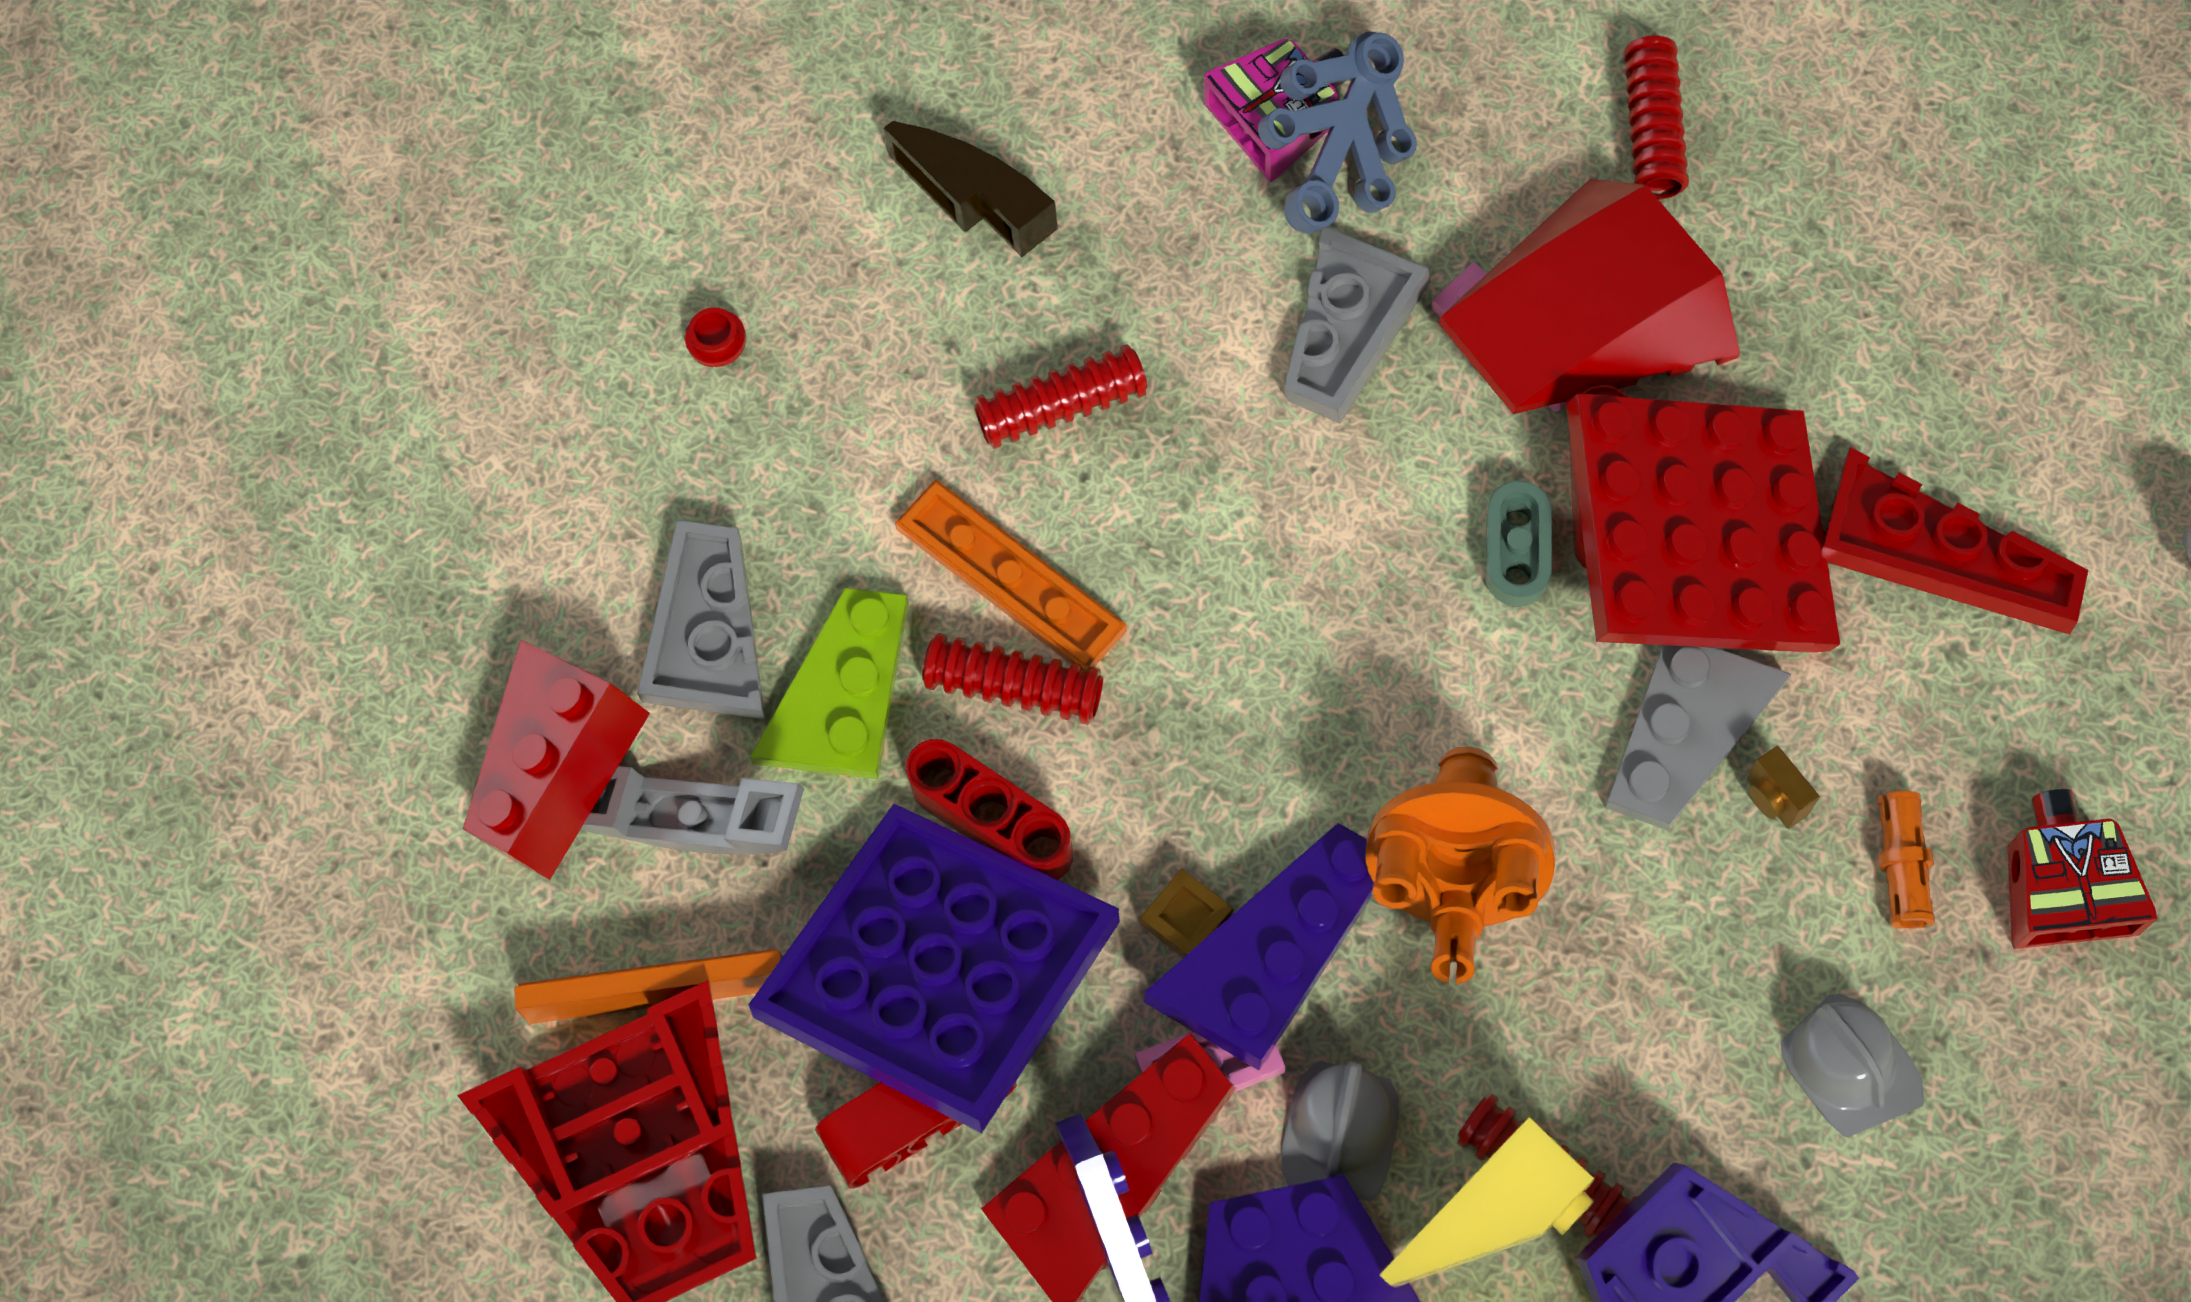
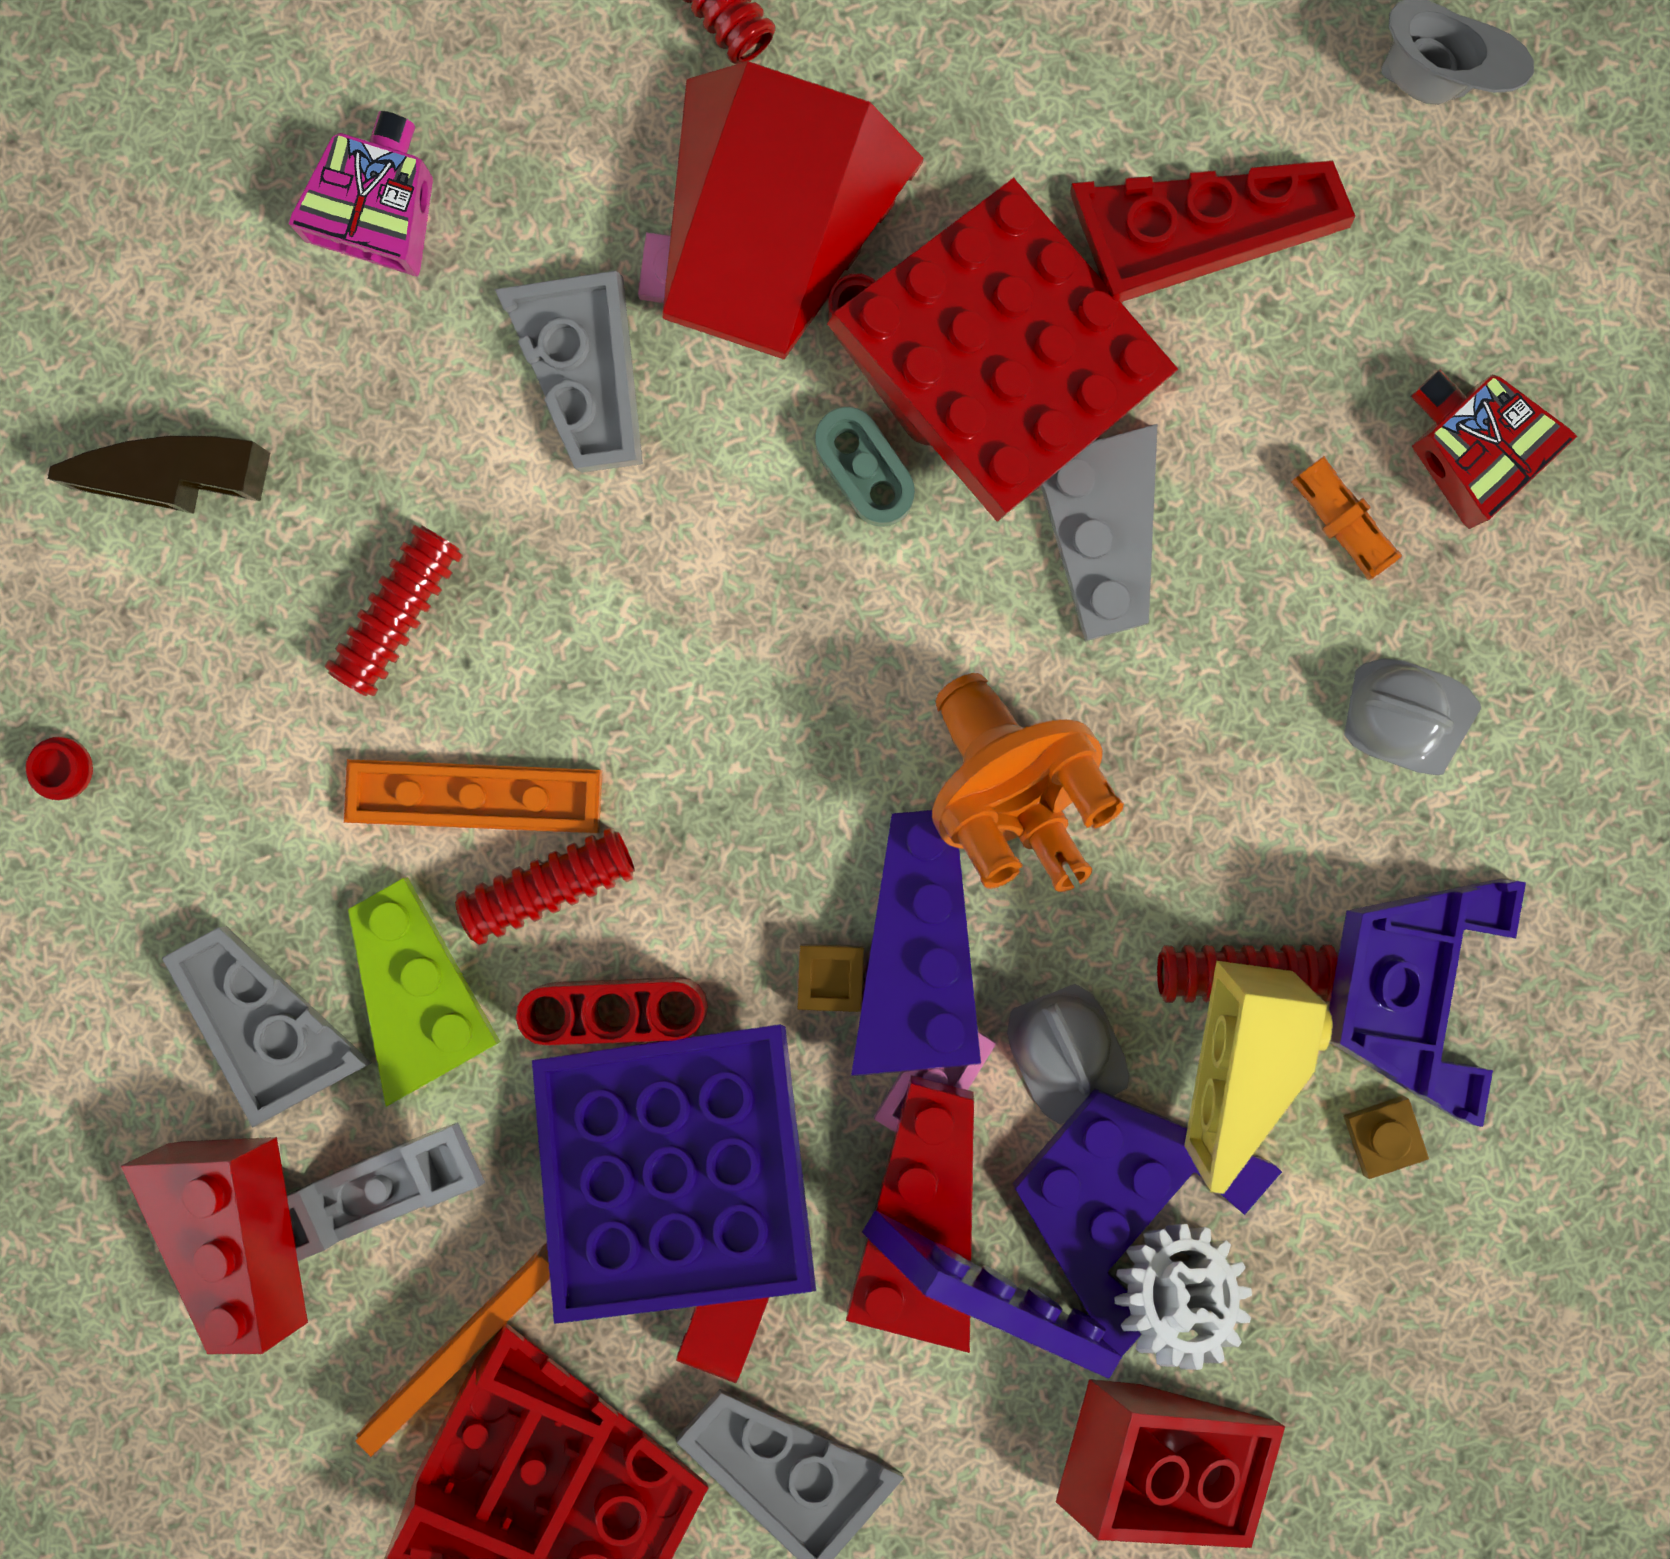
camera: 45 degrees left, 20 degrees up
(1346, 126) = (450, 184): sand blue plant -> none
(1781, 788) = (1216, 532): pearl gold plate -> none

